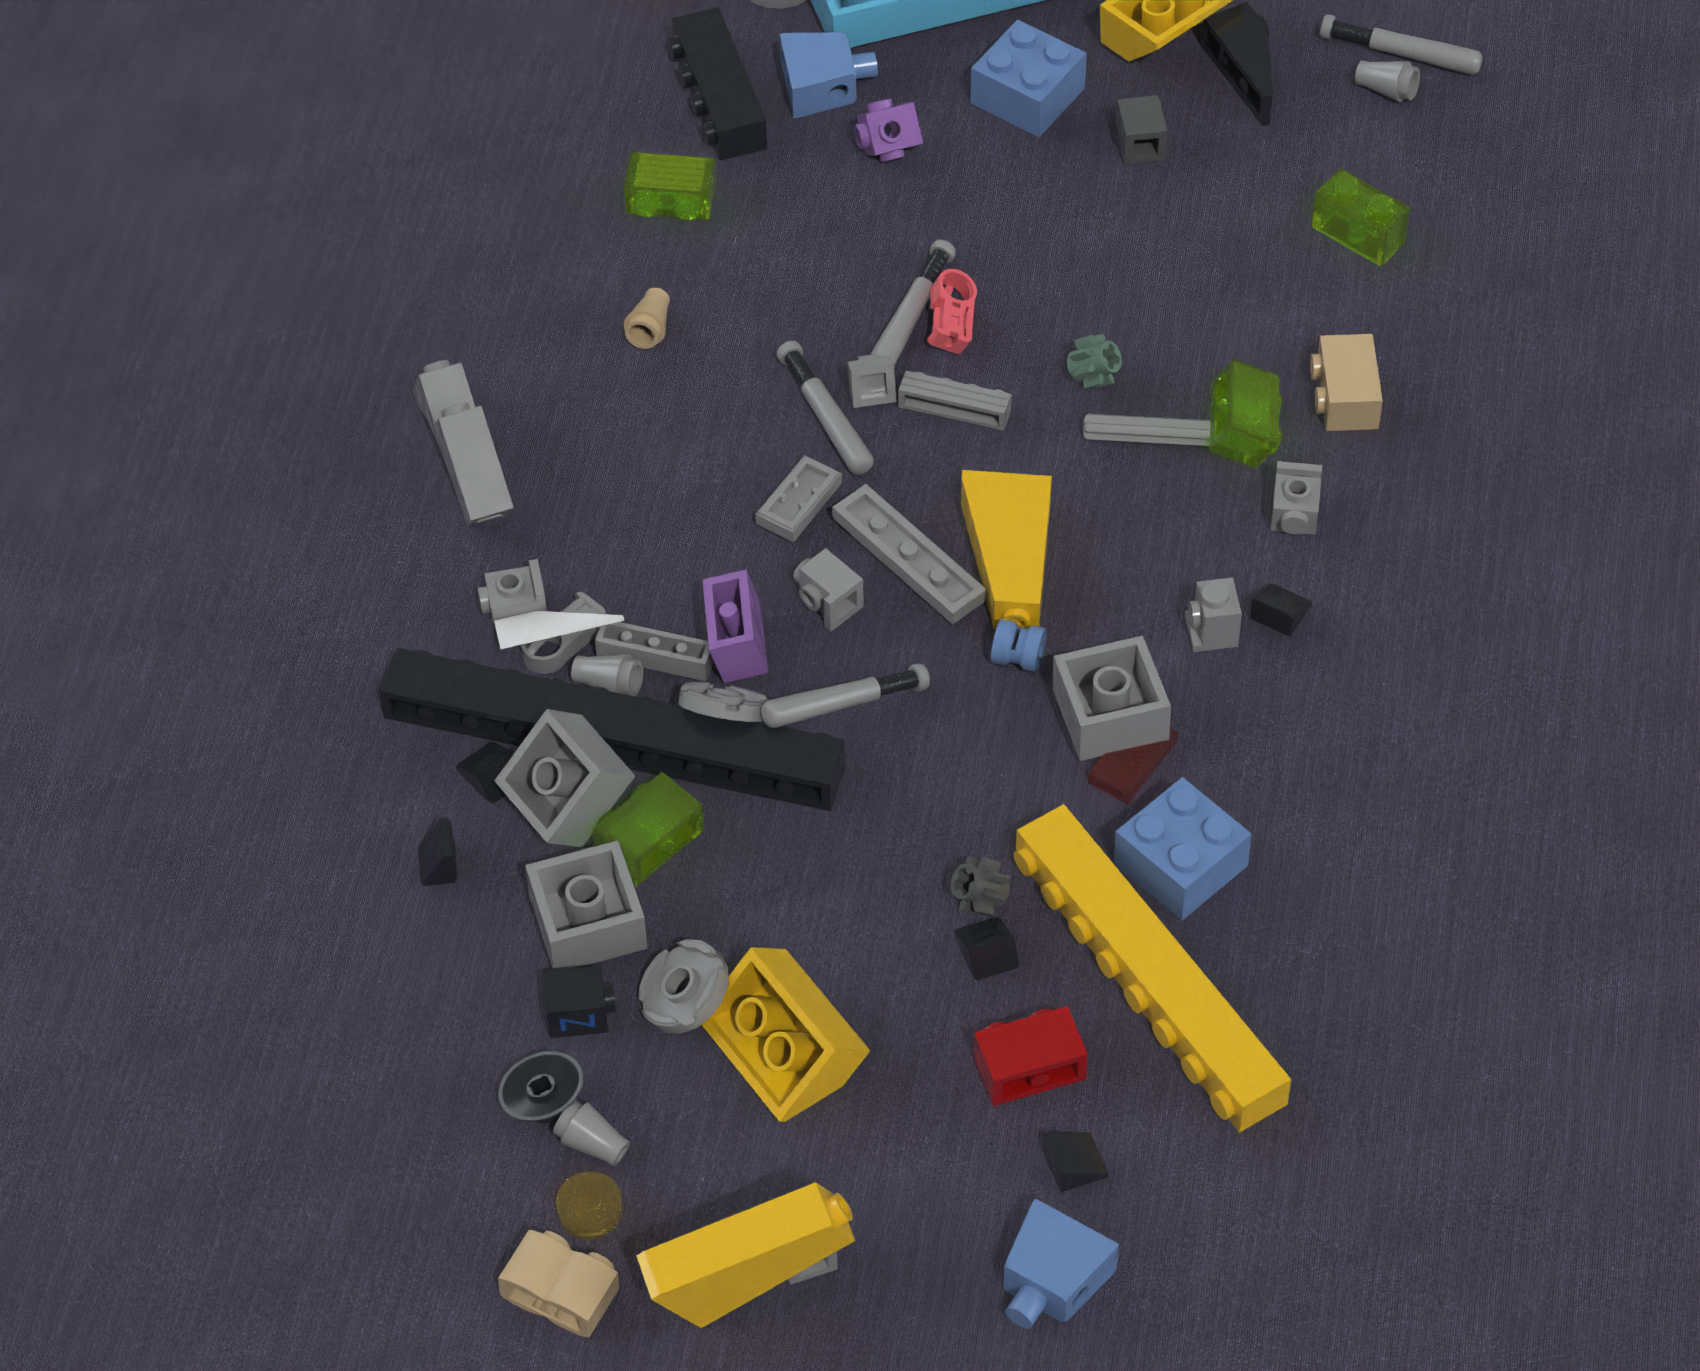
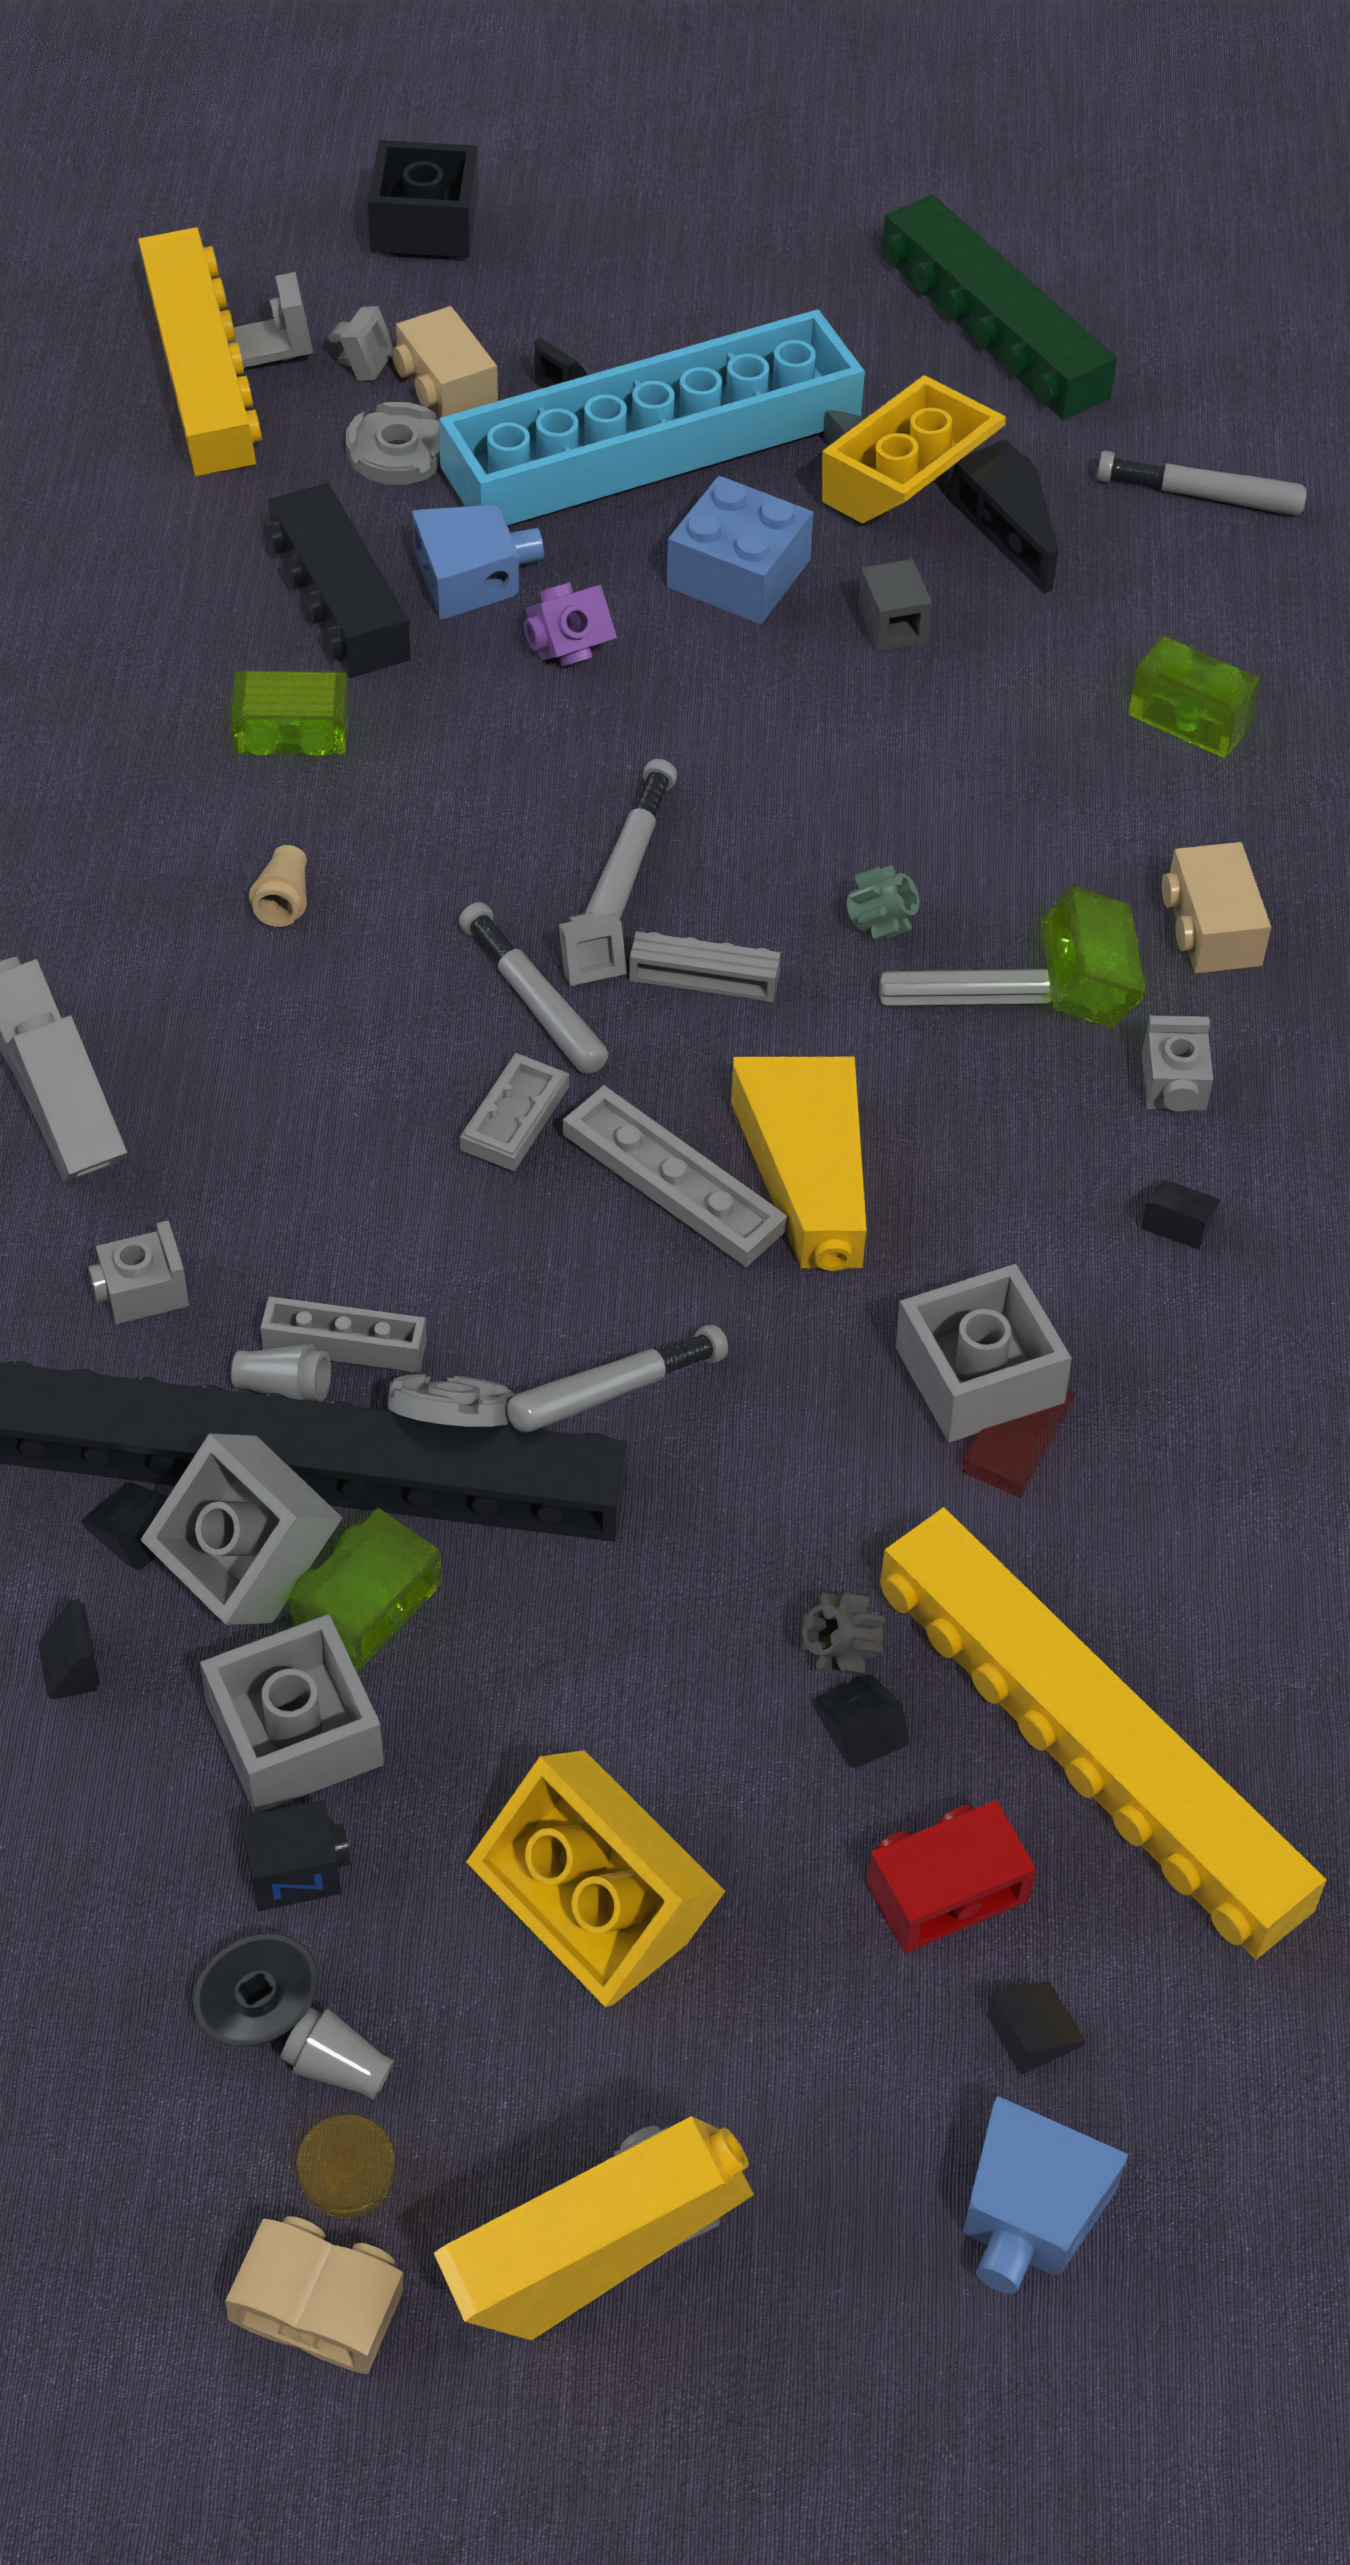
camera: 10 degrees left, 0 degrees up
(546, 624) = (190, 1311): white sticker -> none
(568, 643) = (220, 1314): light grey piece -> none
(698, 1000) = (469, 1839): light grey tile -> none
(735, 626) = (453, 1293): medium lavender brick -> none
(829, 588) = (574, 1230): light grey brick -> none
(952, 317) = (685, 857): coral piece -> none
(1018, 645) = (856, 1292): medium blue wheel -> none
(1182, 848) = (1111, 1555): medium blue brick -> none
(1214, 615) = (1099, 1228): light grey brick -> none
(1393, 79) = (1195, 524): light grey cone -> none

